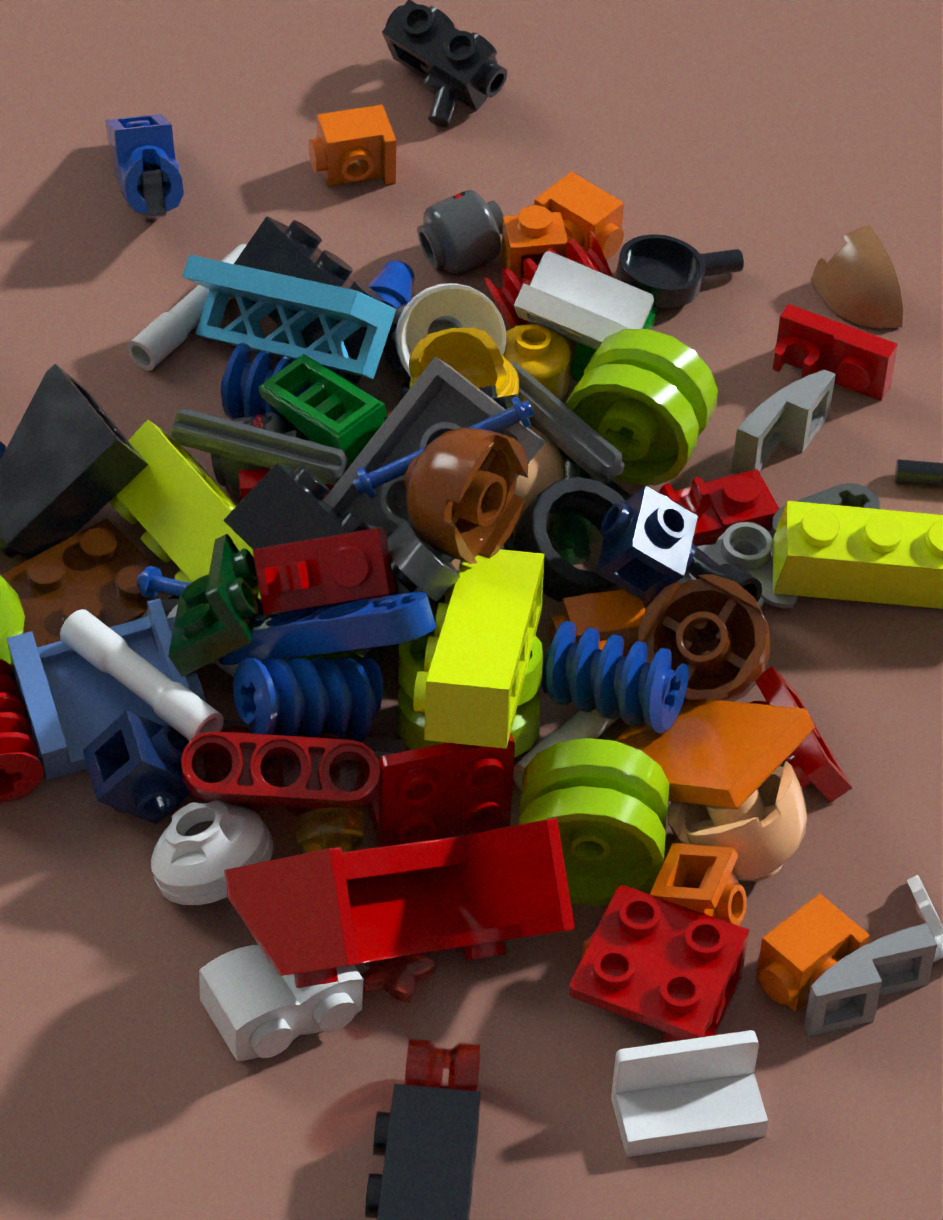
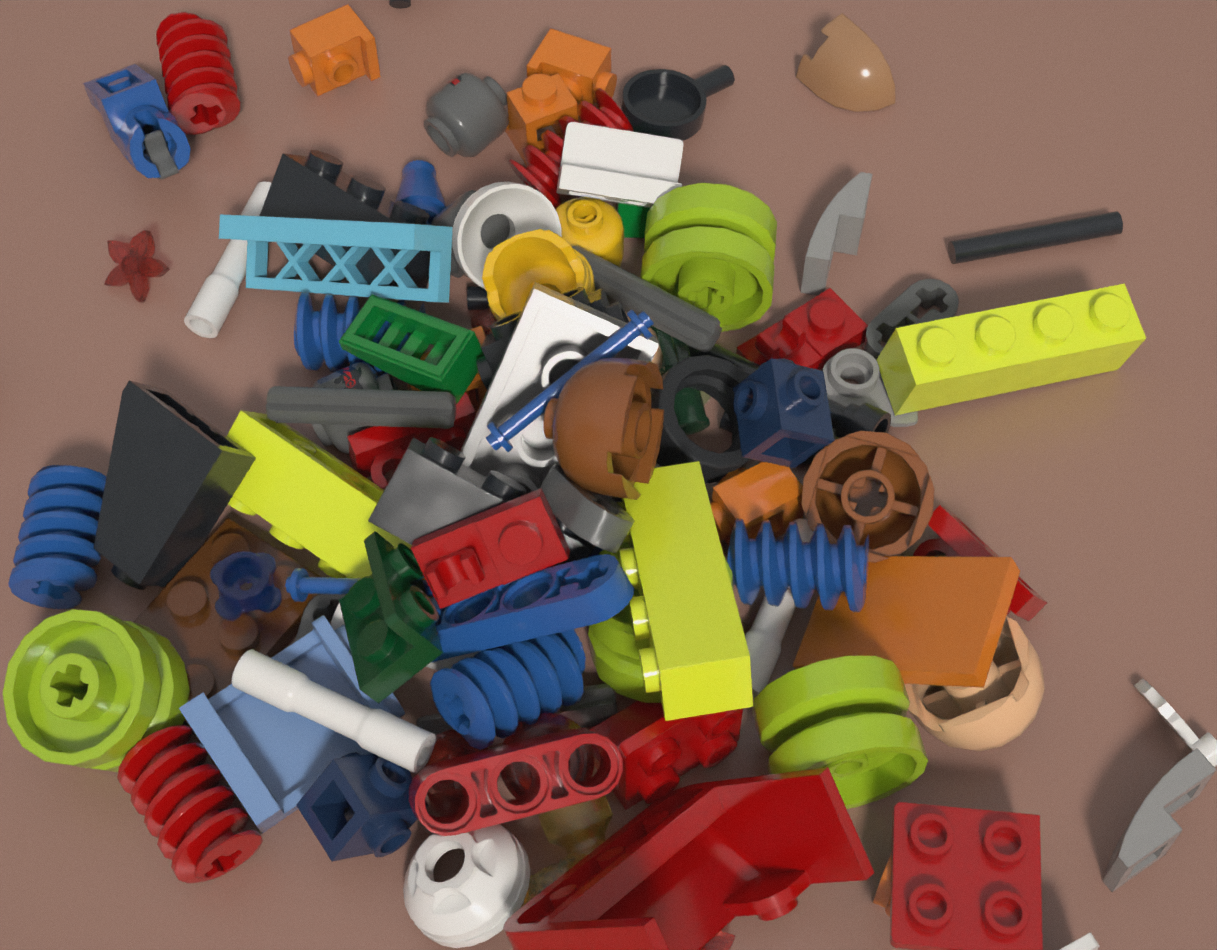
camera: 15 degrees left, 10 degrees up
(99, 287) = (135, 264): none -> clear red plant
(102, 567) = (241, 569): none -> clear blue plate
(216, 134) = (197, 72): none -> red piece
(706, 878) = (970, 773): orange brick -> none
(804, 948) = (1092, 809): orange brick -> none
(819, 343) = (853, 147): red plate -> none

